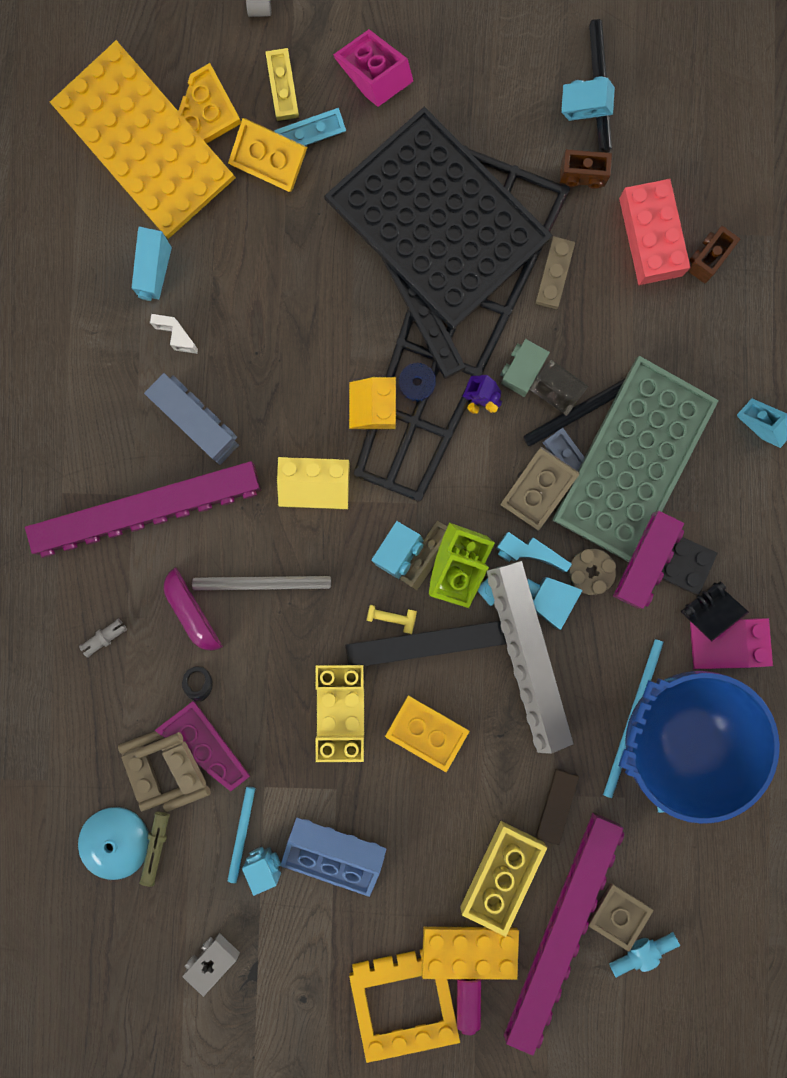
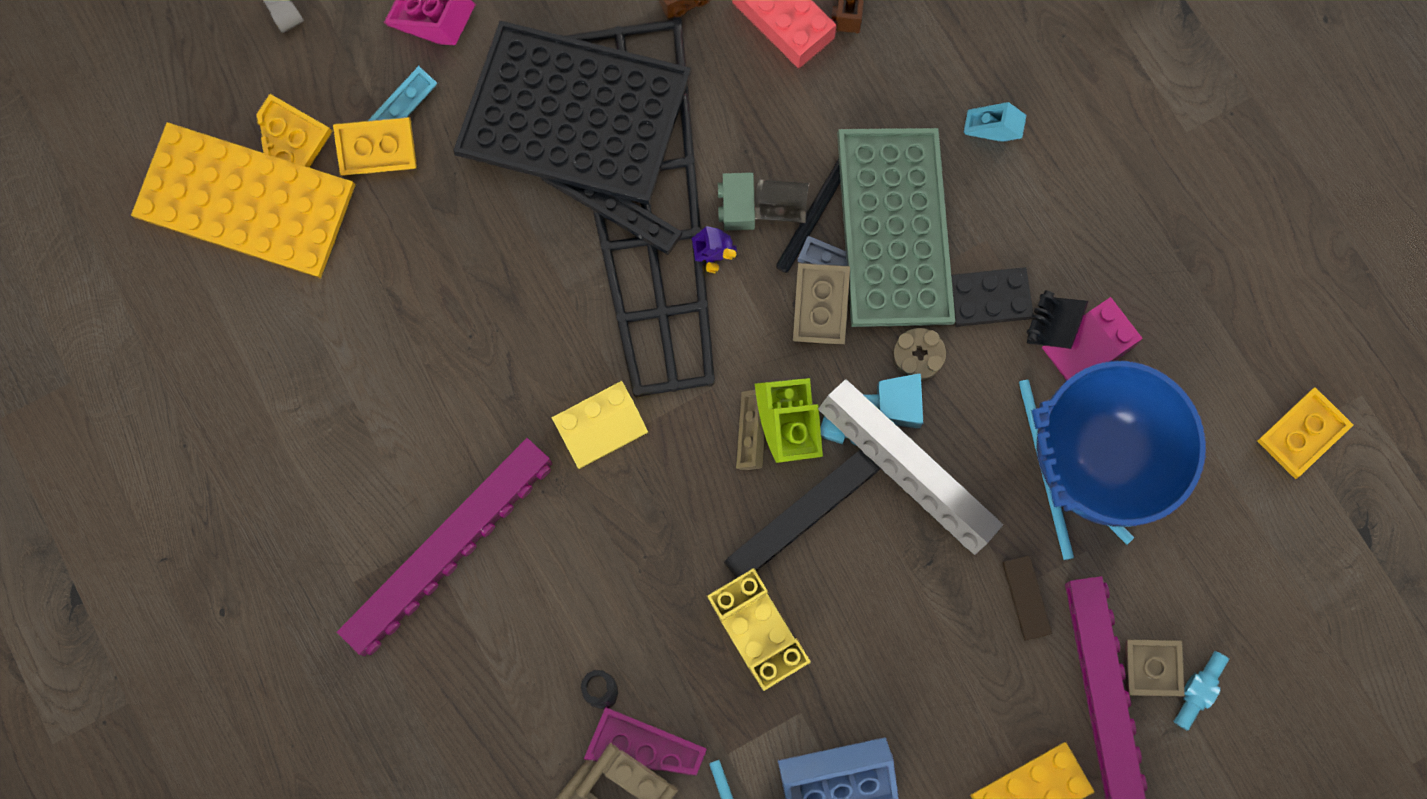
camera: 25 degrees left, 10 degrees down
(102, 638) = (477, 699): light grey pin -> none
(150, 263) = (318, 308): medium azure slope -> none
(179, 339) = (390, 364): white slope -> none
(188, 415) = (445, 430): sand blue piece -> none
(189, 612) = (550, 623): magenta brick -> none
(258, 583) = (605, 552): light grey axle -> none
(282, 84) = (351, 75): light yellow plate -> none
(372, 403) = (613, 316): yellow slope -> none
(398, 550) = (721, 440): medium azure brick -> none
(408, 620) = (772, 504): light yellow piece -> none
(421, 372) = (643, 261): clear blue piece -> none
(427, 733) = (856, 601): yellow plate -> none
(503, 878) = (1017, 696): light yellow brick -> none
(513, 548) = (832, 373): medium azure slope -> none
(555, 272) = (713, 101): dark tan plate -> none
(649, 559) = (965, 309): magenta brick -> none

